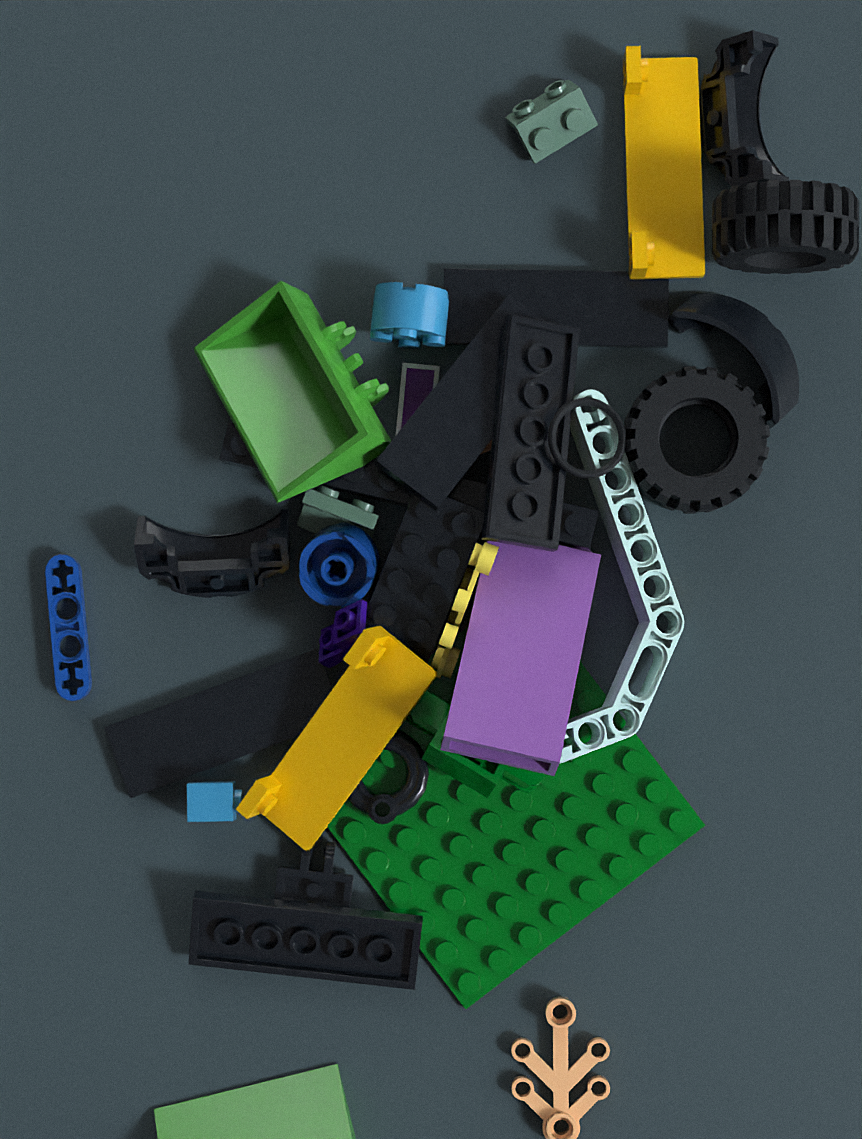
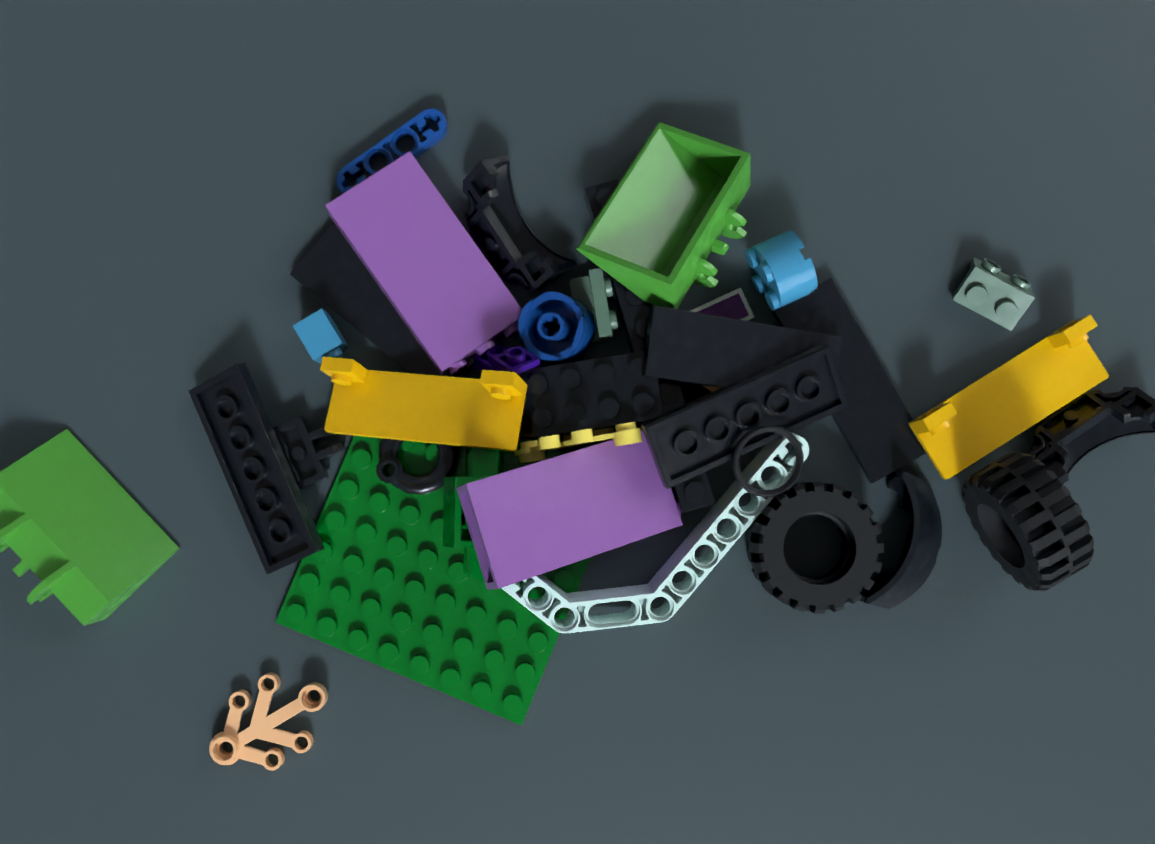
camera: 60 degrees right, 0 degrees up
(201, 657) = (426, 264): none -> medium lavender brick

